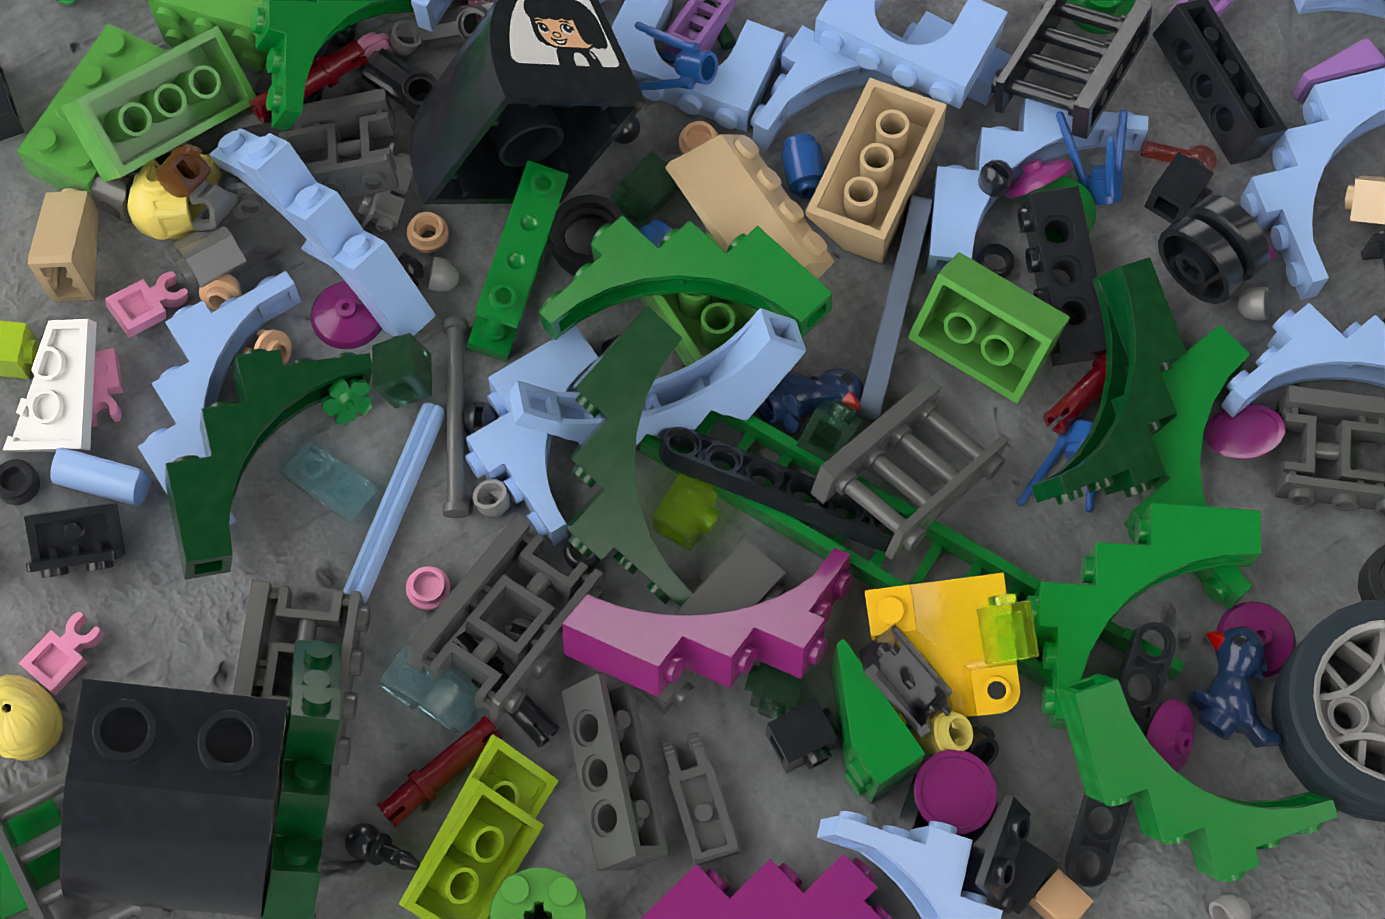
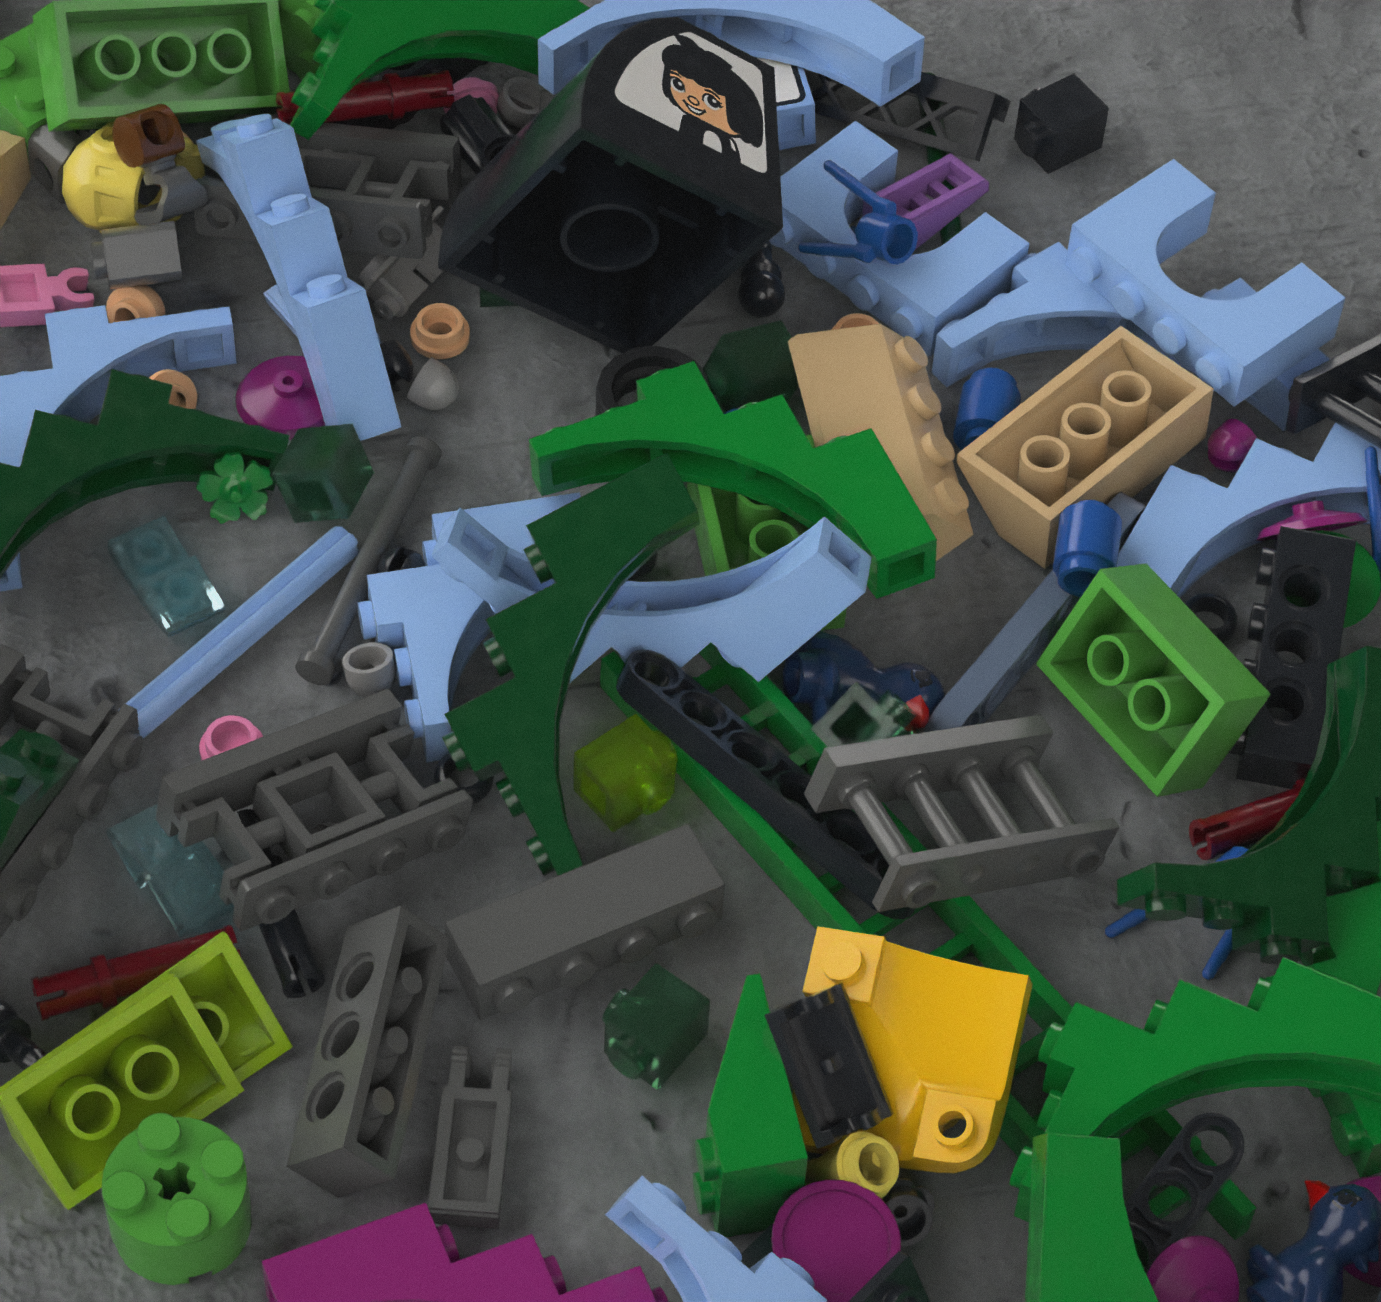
camera: 20 degrees right, 15 degrees down
(516, 261) = (532, 386): green fence -> none
(656, 648) = (581, 928): magenta arch -> none
(803, 736) = (656, 1106): black brick -> none
(914, 250) = (1085, 543): none -> blue brick
(963, 132) = (1230, 445): none -> magenta hinge
(992, 182) = (1237, 504): black hinge -> none
(1007, 629) = (996, 1041): clear neon green brick -> none

